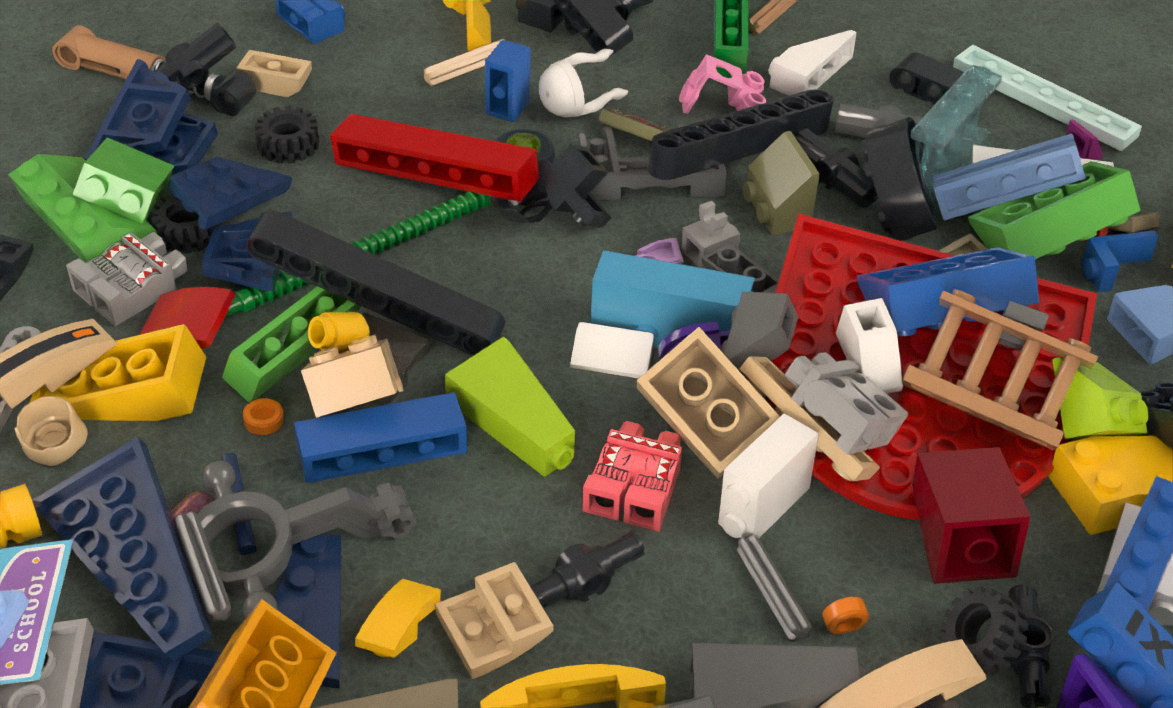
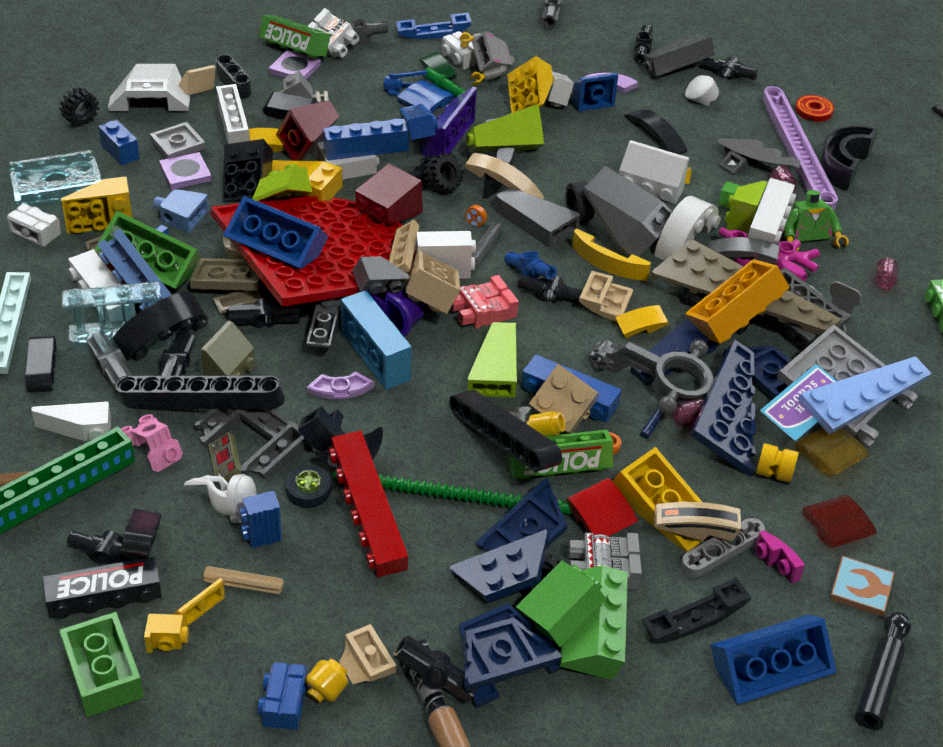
camera: 135 degrees left, 0 degrees up
(50, 430) = (720, 494): tan hair -> none
(203, 567) = (711, 368): dark grey axle -> none
(274, 143) = (414, 611): black tyre -> none
(288, 35) = (326, 681): none -> yellow head
(612, 350) = (421, 364): white slope -> none
(649, 569) = (530, 264): none -> blue pin
(707, 234) = (299, 365): light grey brick -> none
(846, 401) = (390, 233): light grey hips -> none
(871, 343) = (343, 241): white slope -> none
(1003, 409) = (316, 200): medium nougat fence -> none
(1025, 316) = (284, 193): dark grey slope -> none
(1086, 142) = (45, 290): magenta slope -> none

